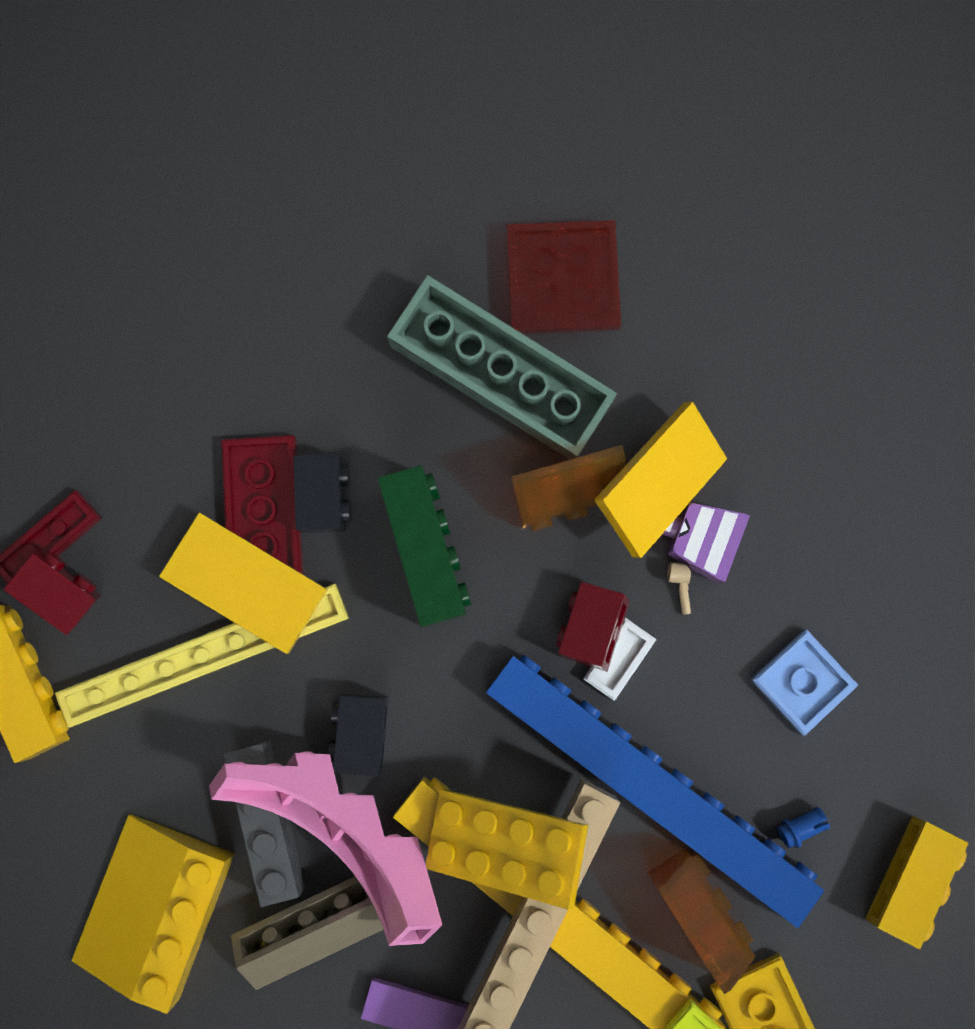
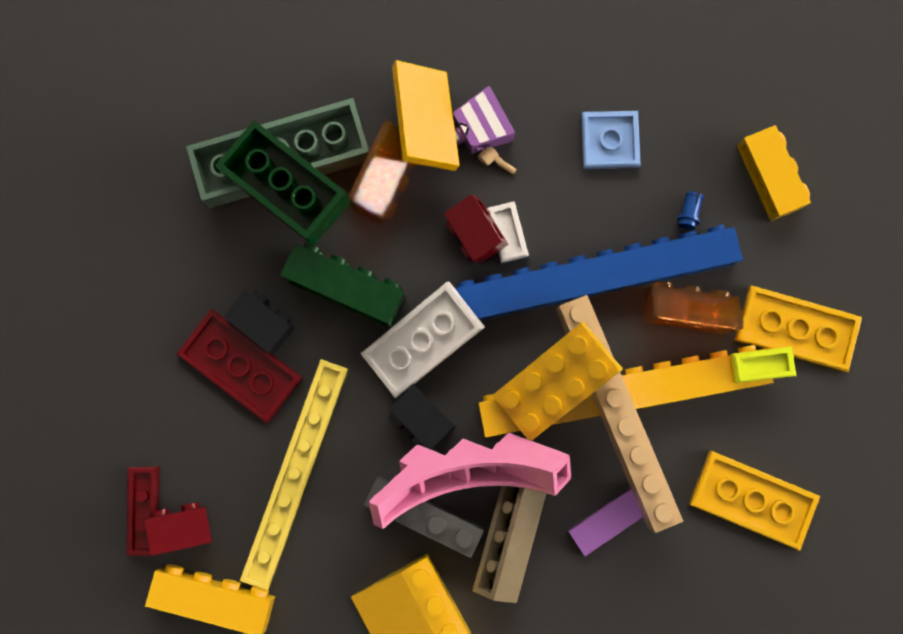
camera: 50 degrees left, 0 degrees up
(243, 583) = (272, 411): yellow tile -> none
(438, 670) = (422, 339): none -> white tile
(469, 403) = (283, 183): none -> dark green brick
(564, 277) = (258, 72): clear red plate -> none

